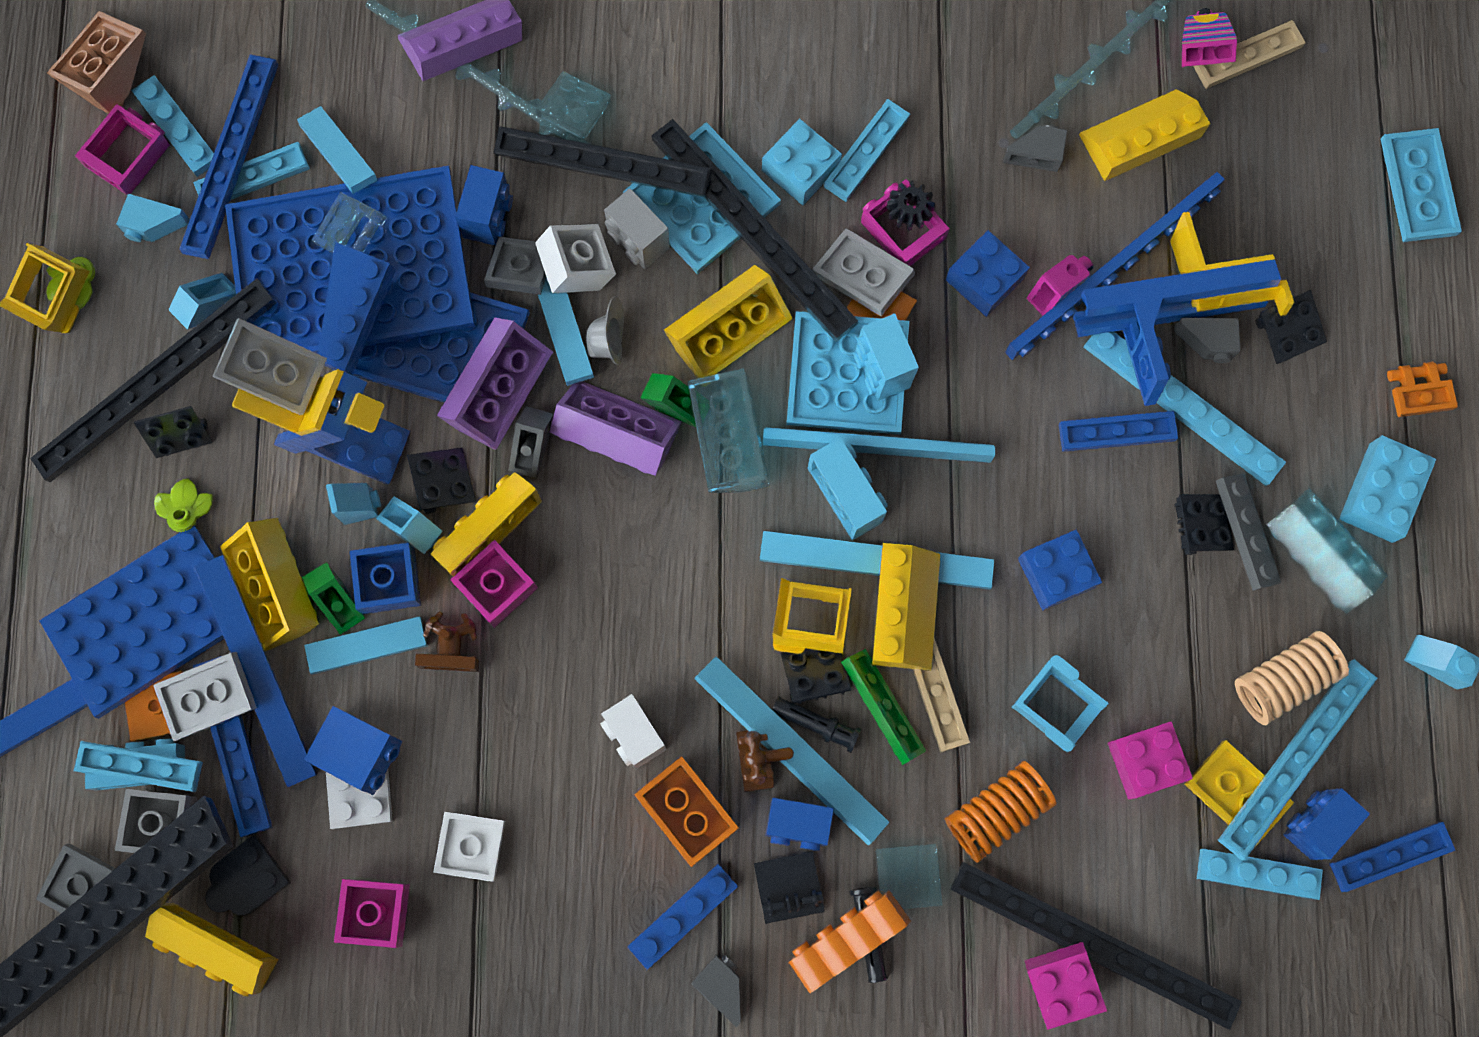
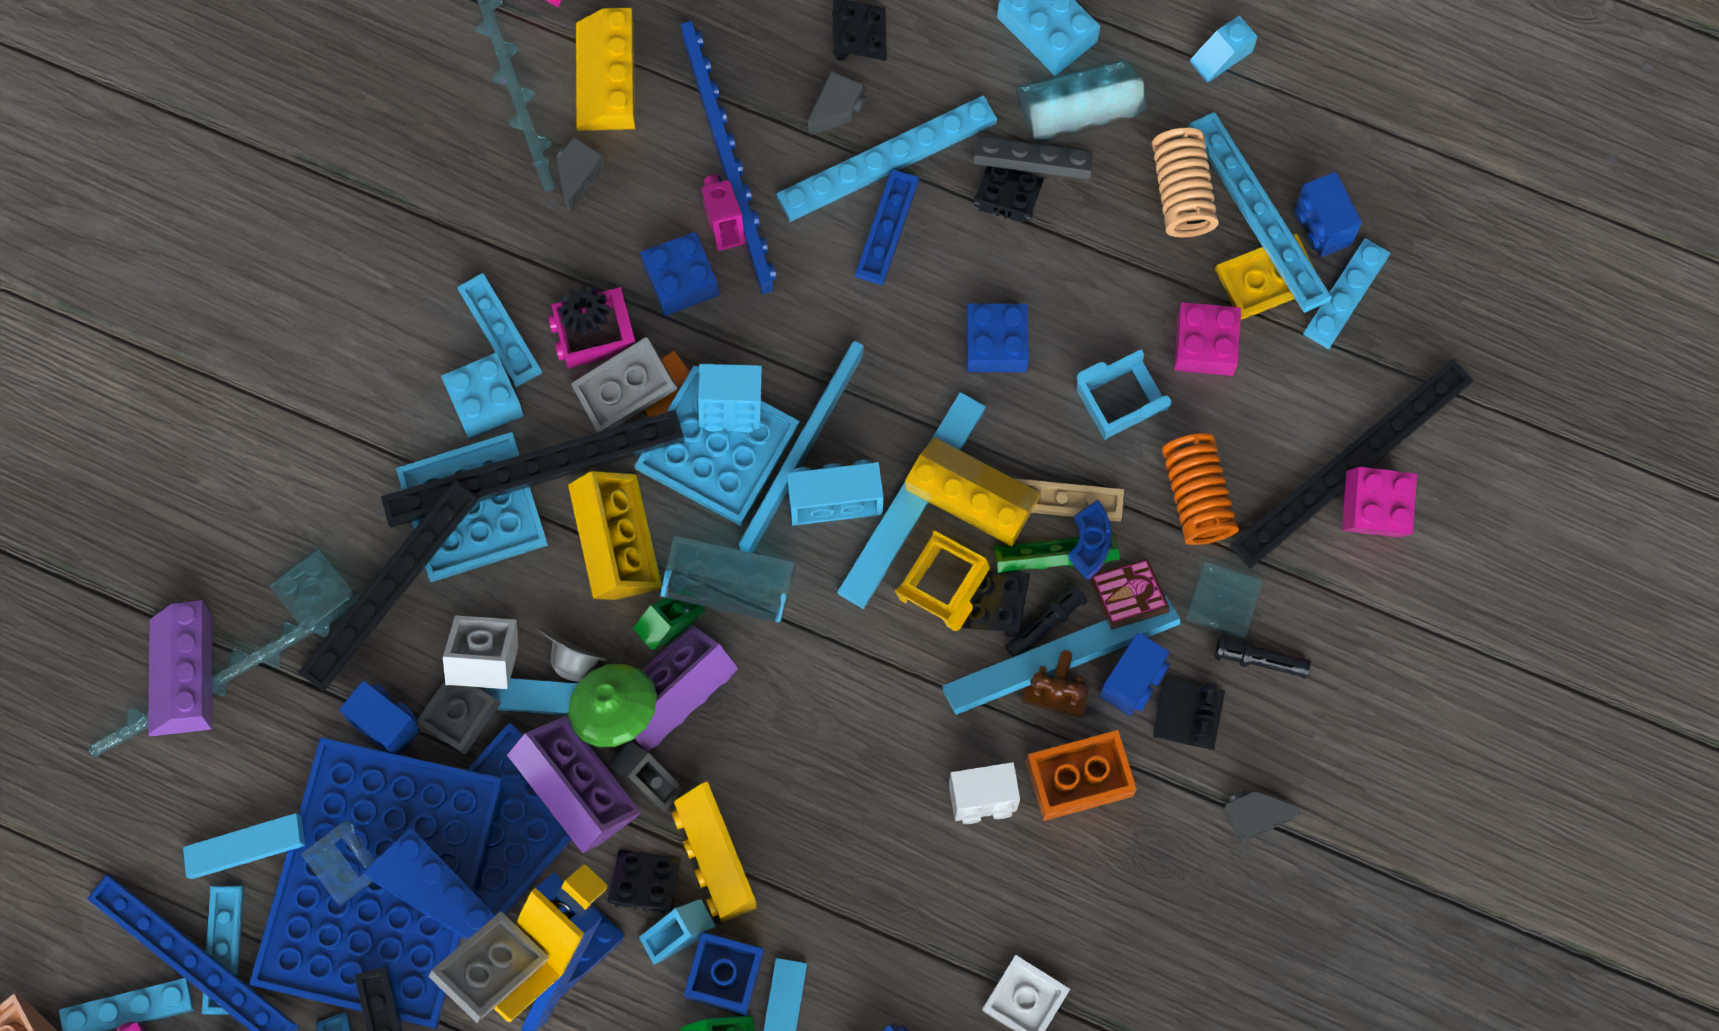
camera: 65 degrees left, 5 degrees down
(353, 501) = (631, 975): medium azure slope -> none
(448, 646) = (818, 940): reddish brown piece -> none
(494, 583) = (778, 868): dark pink brick -> none
(574, 384) = (612, 705): none -> bright green hat
(636, 229) = (479, 580): light grey brick -> none
(682, 916) = (1175, 824): blue plate -> none
(849, 941) = (1263, 676): orange brick -> none
(874, 787) = (1129, 594): none -> tile
(906, 734) = (1093, 540): none -> blue tile
(1194, 293) = (791, 93): blue piece -> none
(1392, 857) = (1378, 175): blue plate -> none

